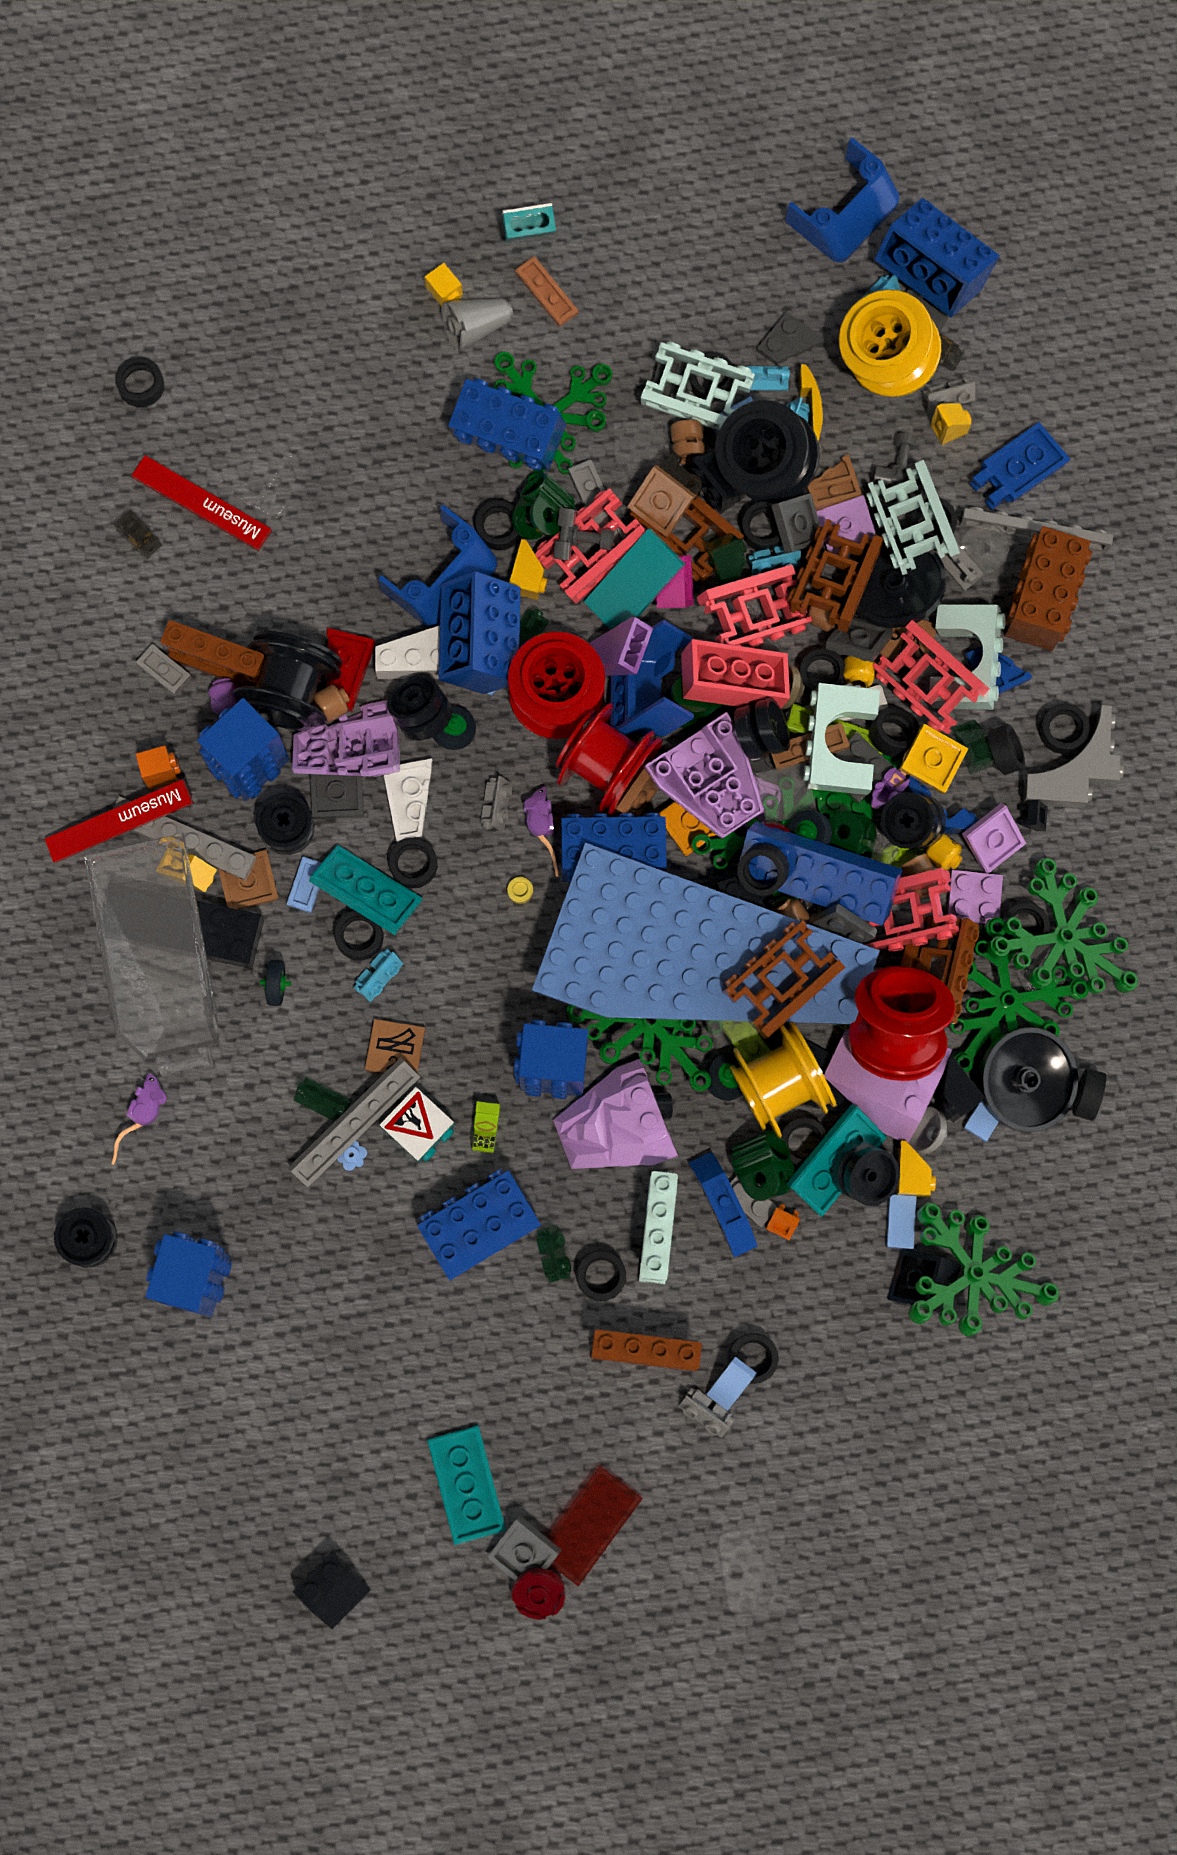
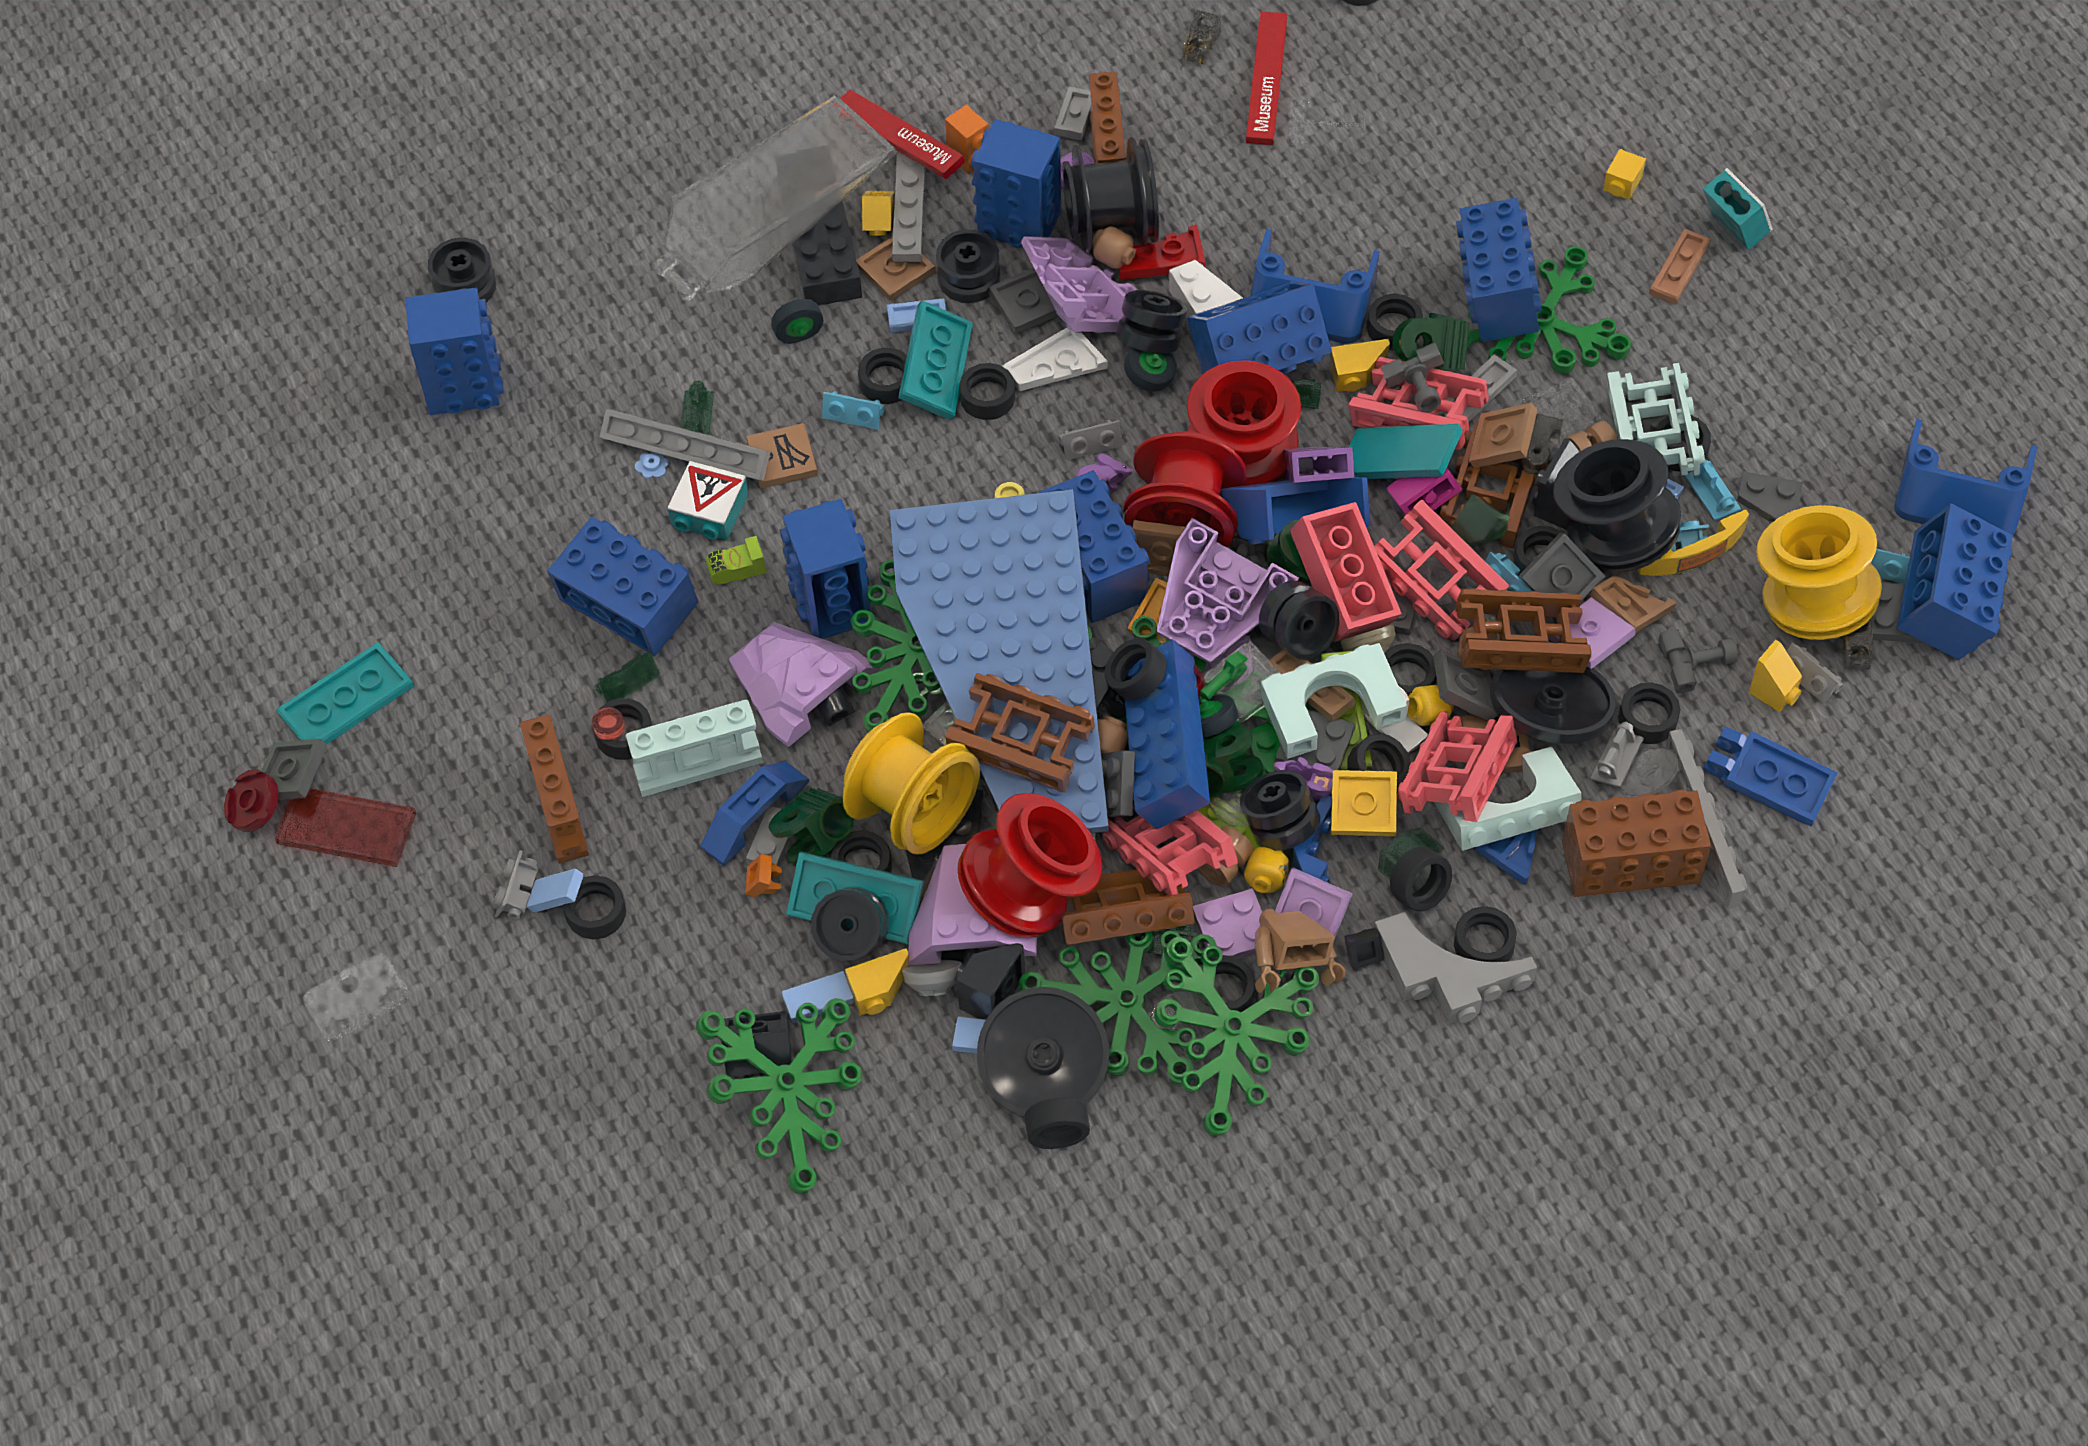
camera: 70 degrees right, 20 degrees down
(143, 1109) = (616, 271): medium lavender animal -> none
(331, 1590) = (186, 616): black slope -> none
(474, 319) = (1604, 211): light grey cone -> none
(601, 1285) = (608, 723): none -> clear red tile
(781, 799) = (1232, 670): none -> green bar
(931, 510) = (1645, 656): light aqua fence -> none
(1023, 867) = (1292, 942): none -> medium nougat torso

